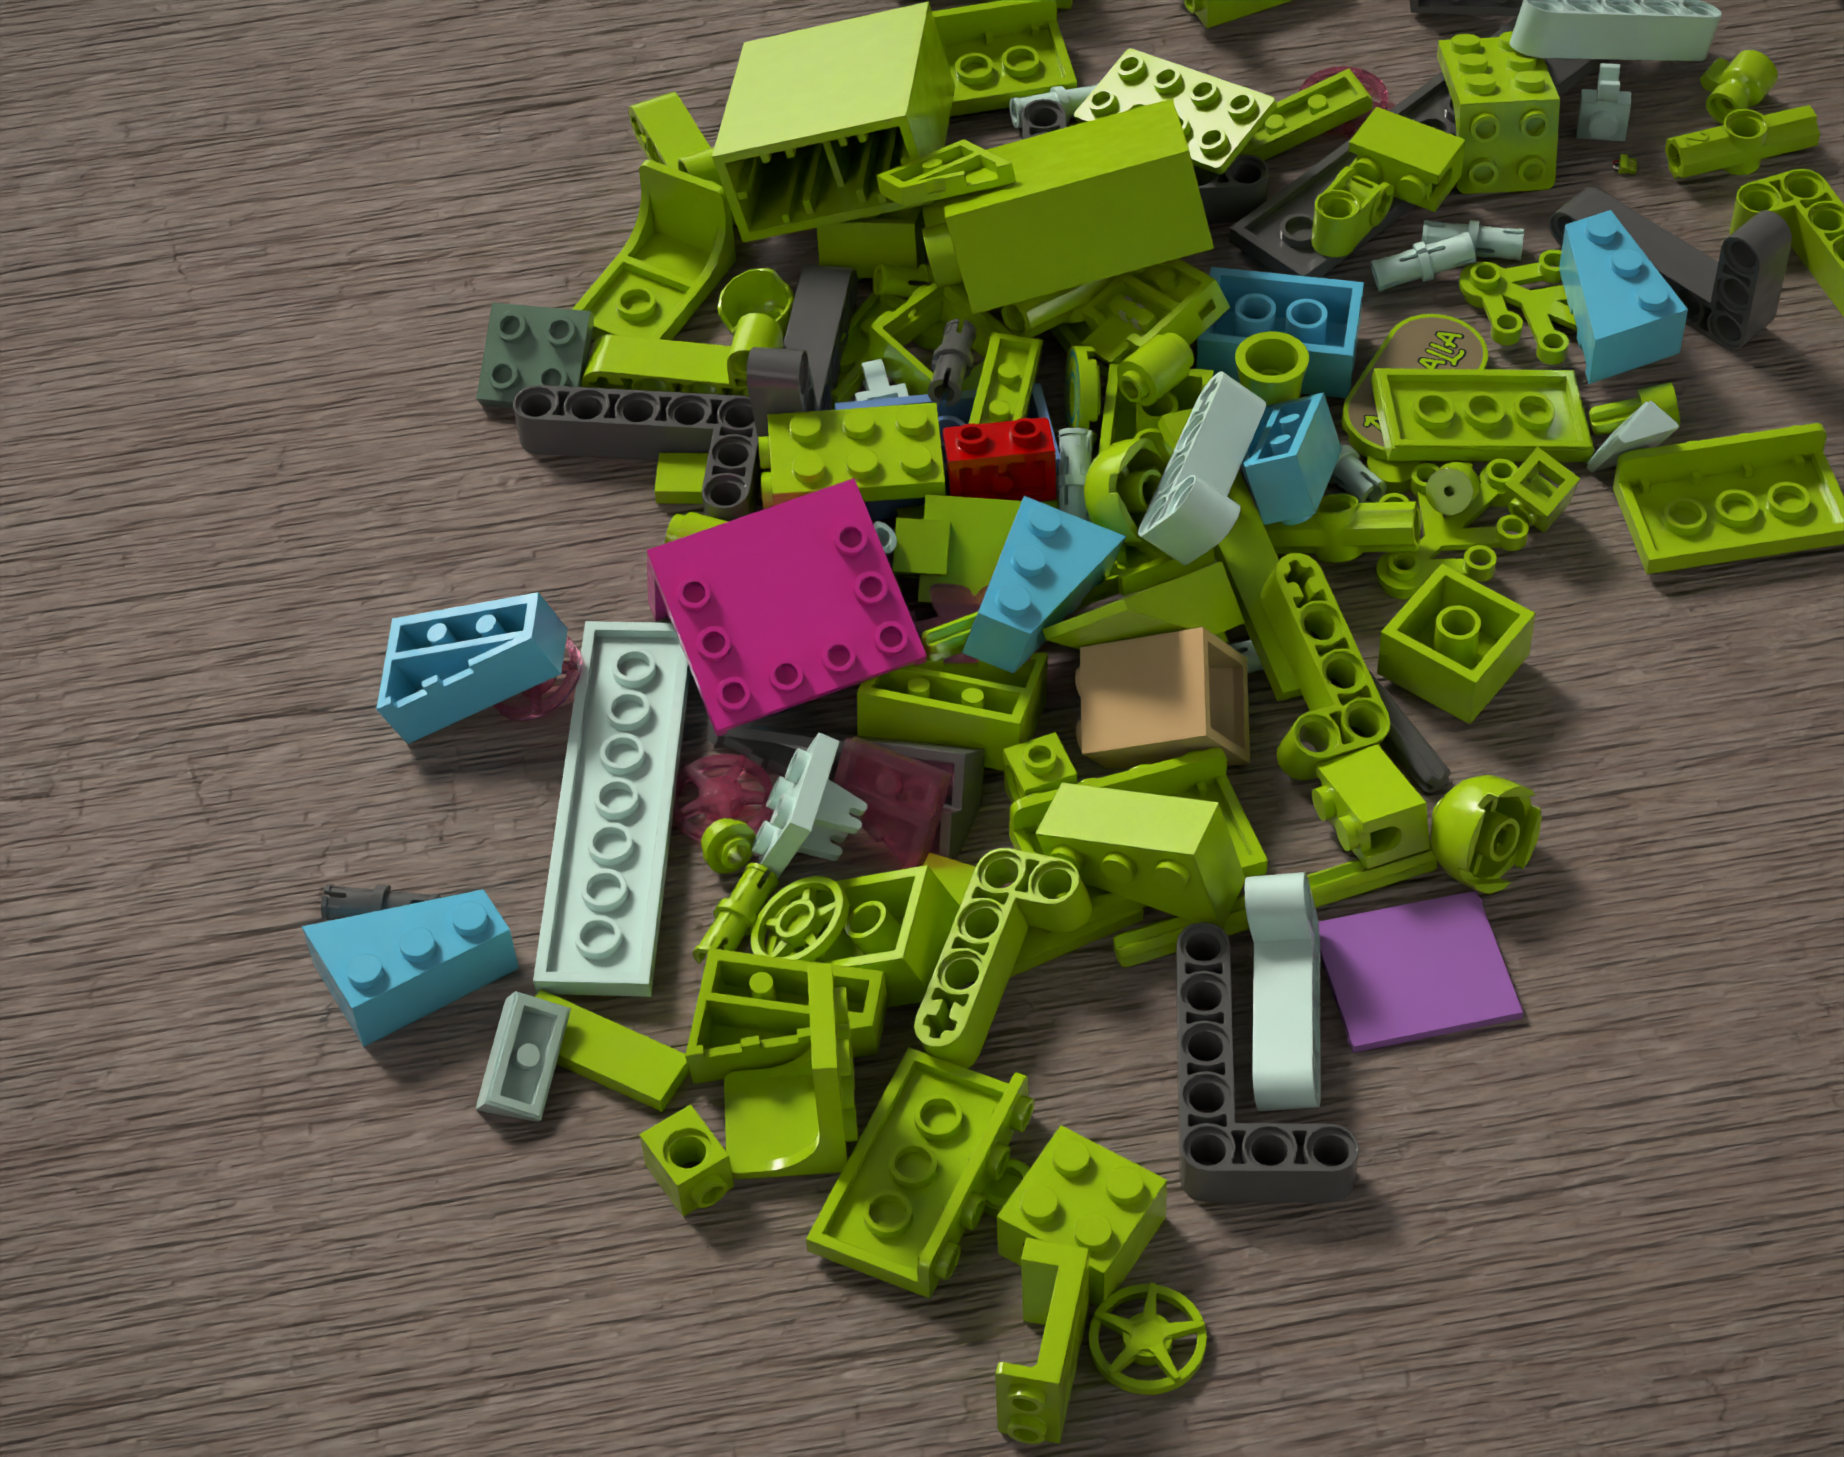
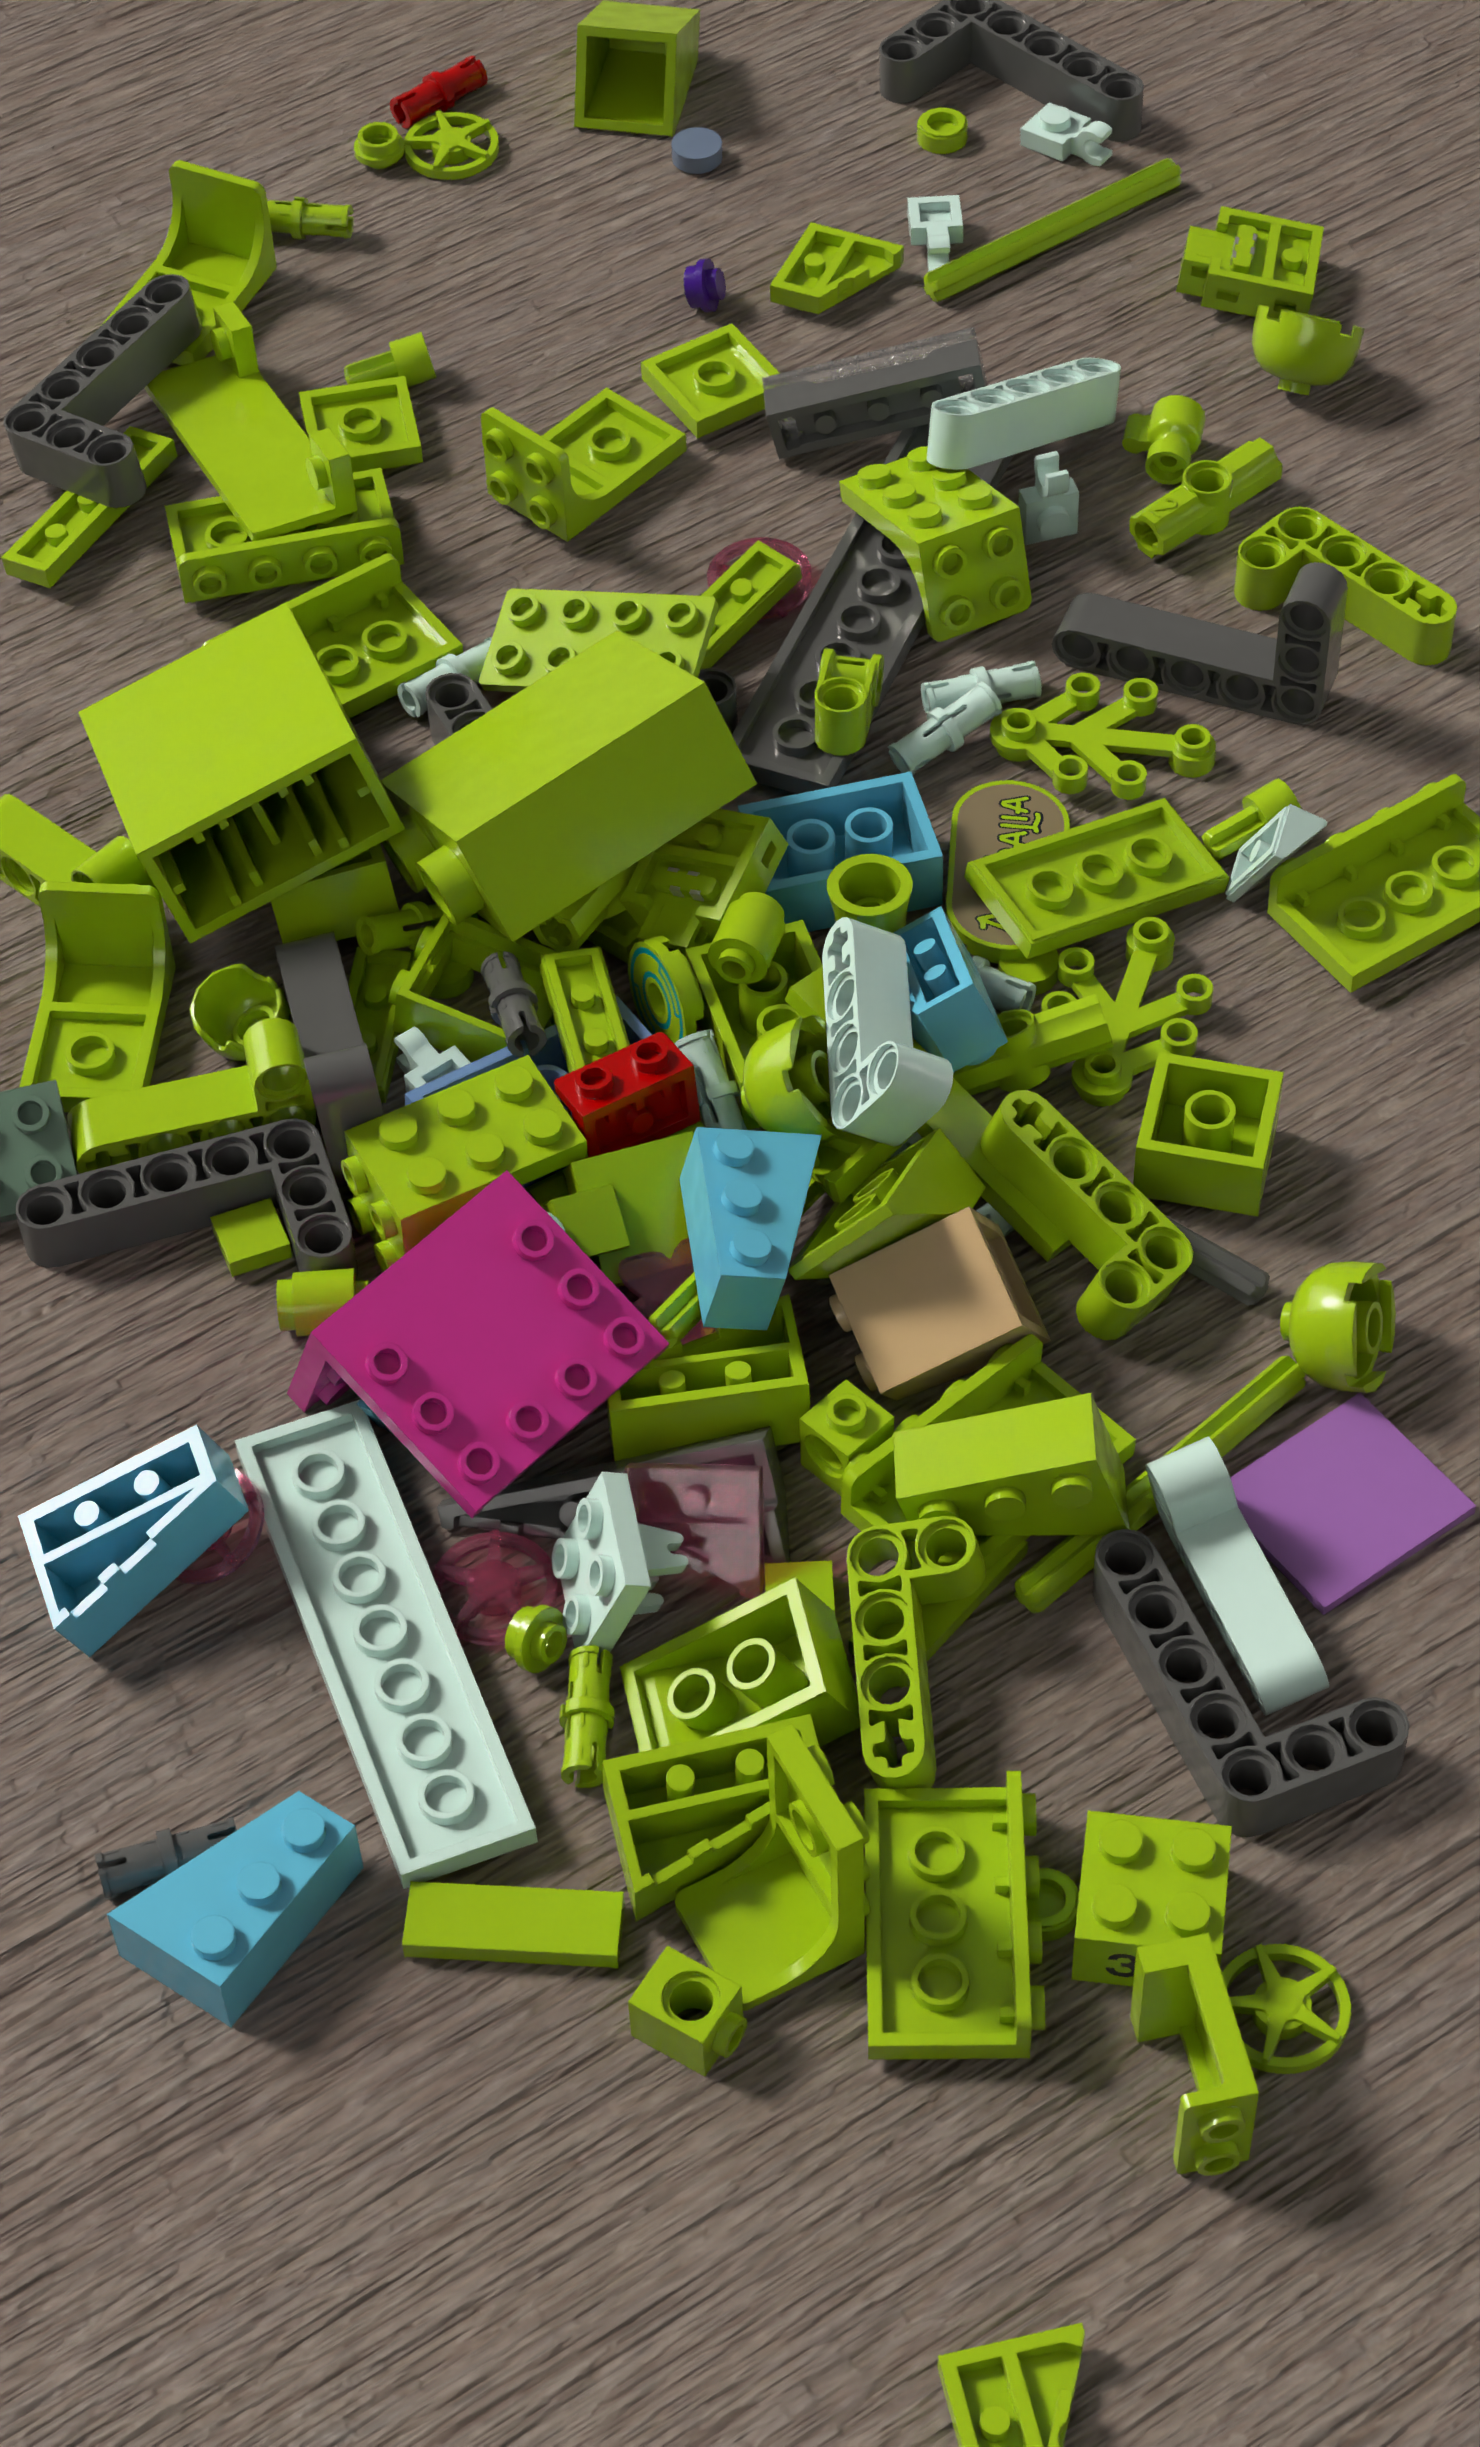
camera: 25 degrees left, 0 degrees up
(523, 1057) = (433, 1967): light aqua slope -> none
(802, 920) = (672, 1692): lime wheel -> none
(945, 174) = (422, 791): lime wing -> none
(1371, 807) = (1217, 1341): lime brick -> none
(1410, 156) = (878, 617): lime brick -> none
(1452, 488) = (1117, 966): lime piece -> none
(1534, 496) = (1202, 949): lime brick -> none
(1617, 299) = (1179, 704): medium azure wedge -> none
(1625, 165) = (1092, 558): lime piece -> none

